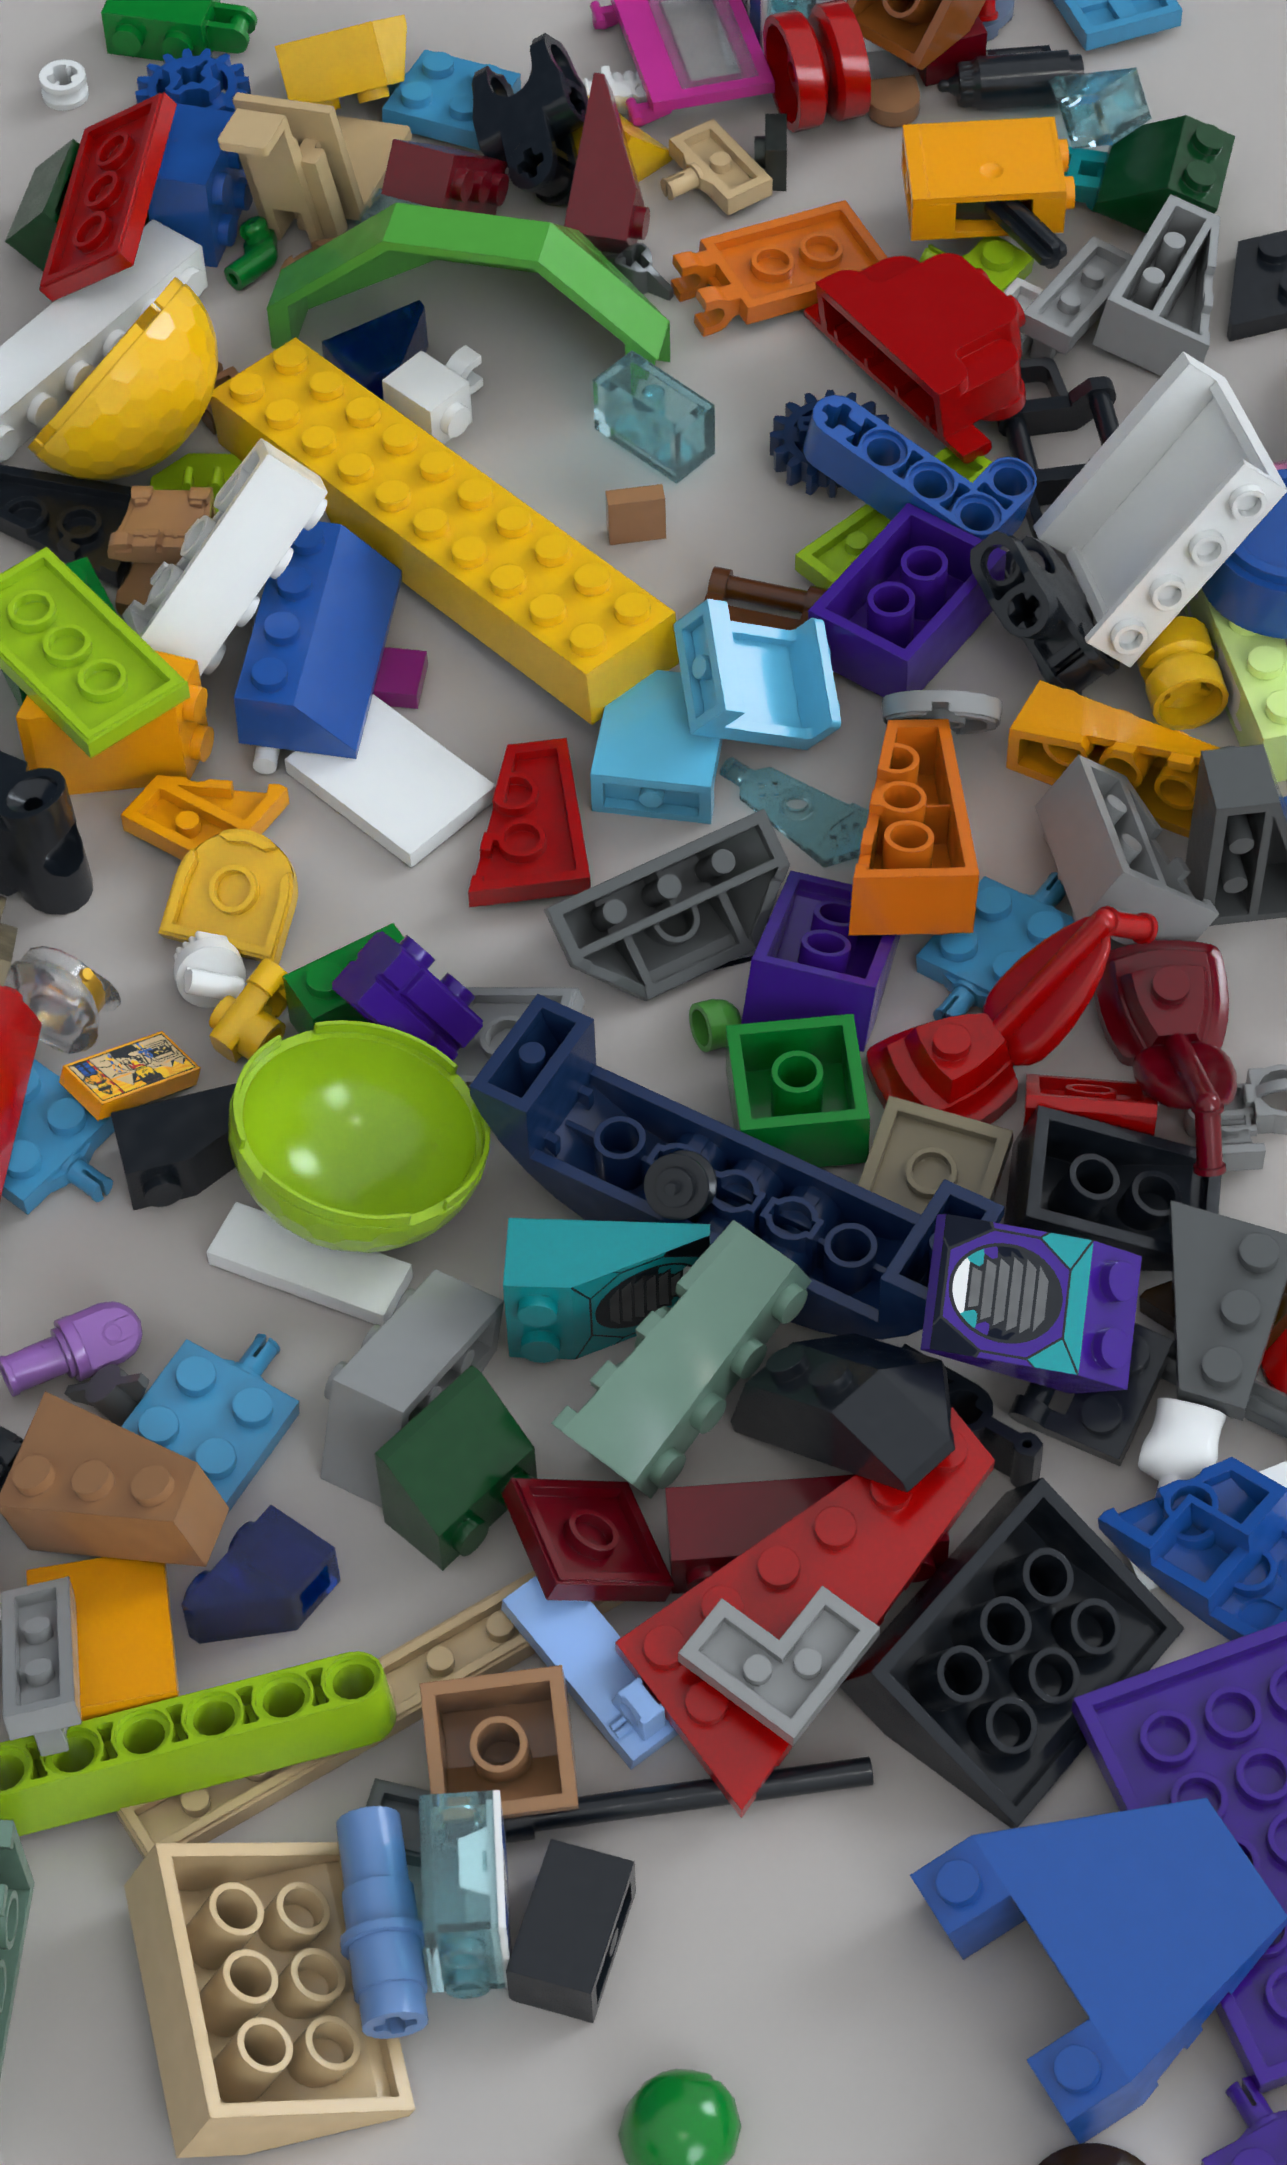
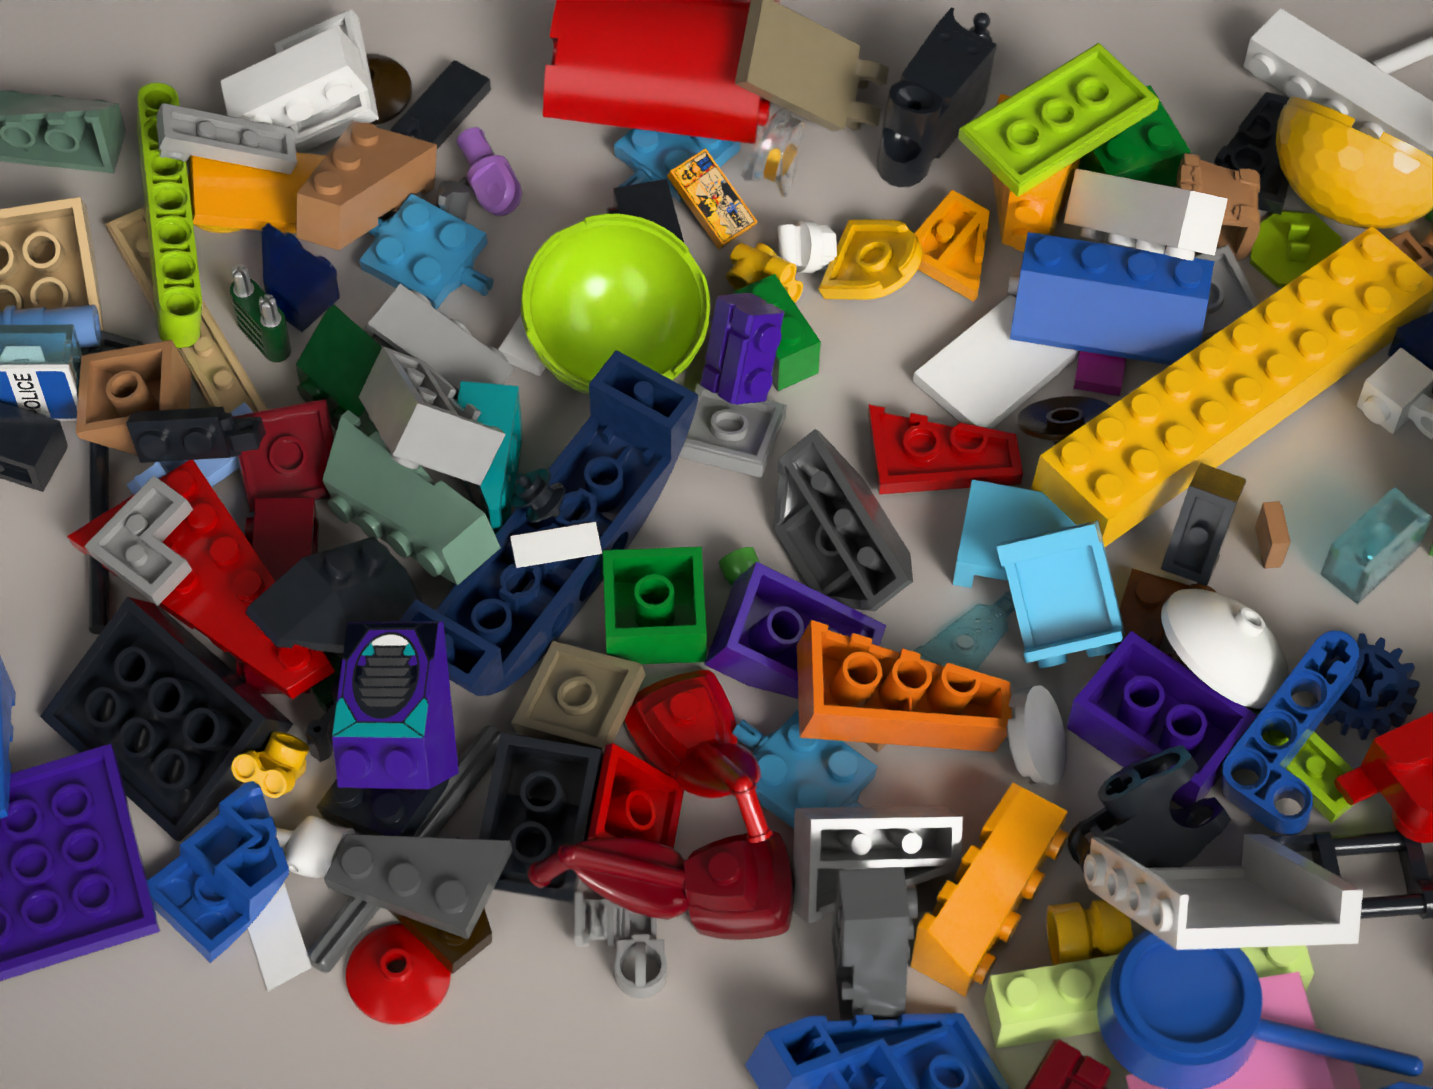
camera: 90 degrees right, 5 degrees up
(345, 1605) = (259, 316): none -> dark green piece
(481, 697) = (1059, 416): none -> dark brown dish
(577, 1313) = (424, 422): none -> light grey wedge
(591, 1620) = (192, 434): none -> black hinge
(649, 545) = (1203, 524): none -> panel
(739, 1179) = (556, 544): none -> white sticker
(809, 531) = (1225, 645): none -> white dish
(1094, 1492) = (276, 766): none -> yellow plate

